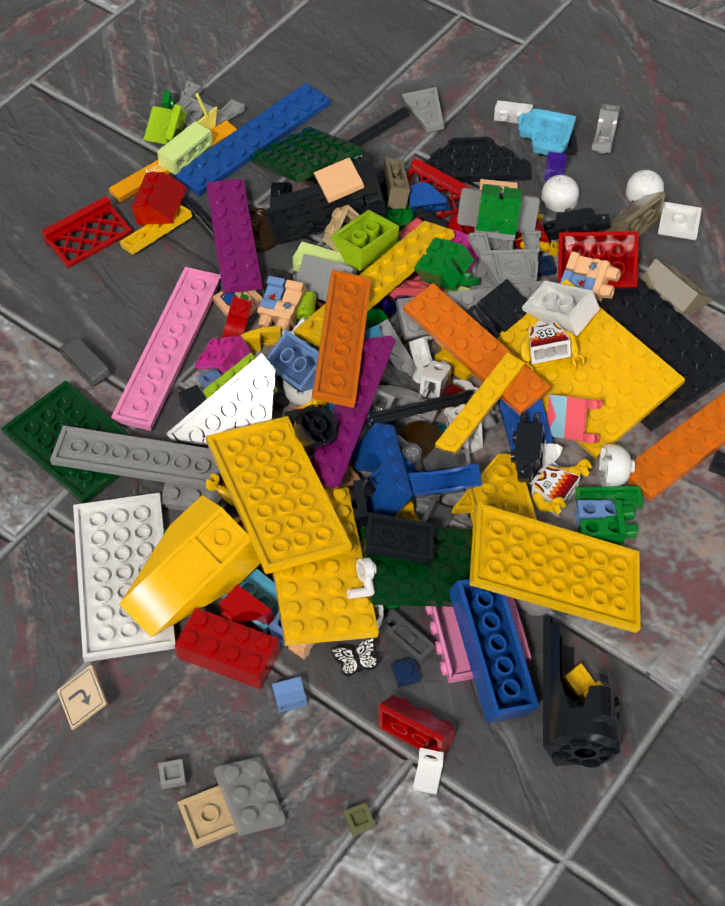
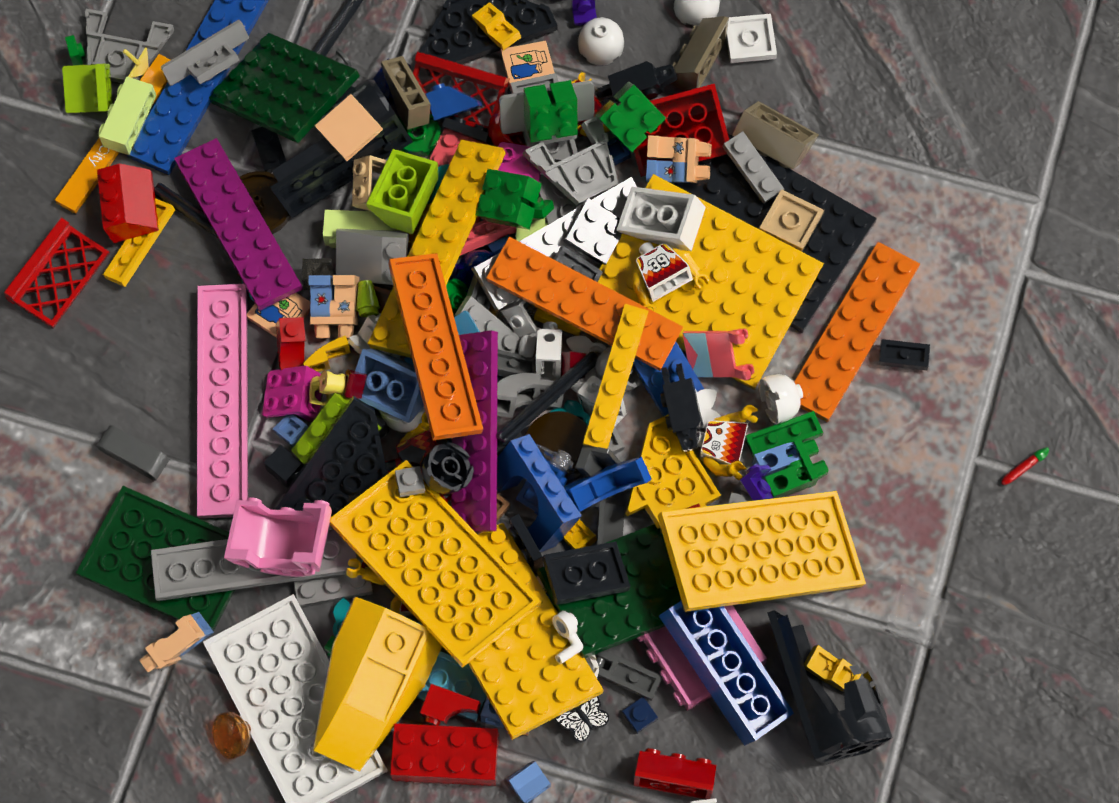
camera: 20 degrees left, 15 degrees up
(51, 495) = (166, 651): none -> light nougat hips
(63, 577) = (227, 735): none -> clear orange piece
(161, 443) = (278, 540): none -> bright pink cylinder
(251, 345) = (327, 384): none -> light yellow leg
(259, 125) = (208, 56): none -> light grey bracket
(271, 351) = (354, 384): none -> dark red slope
(282, 429) = (409, 481): none -> light grey plate
(482, 162) = (495, 26): none -> yellow slope
(562, 234) = (630, 117): none -> green piece
(570, 515) = (755, 485): none -> dark purple bracket
(650, 300) = (753, 167): none -> light grey plate
(670, 343) = (791, 220): none -> tan plate

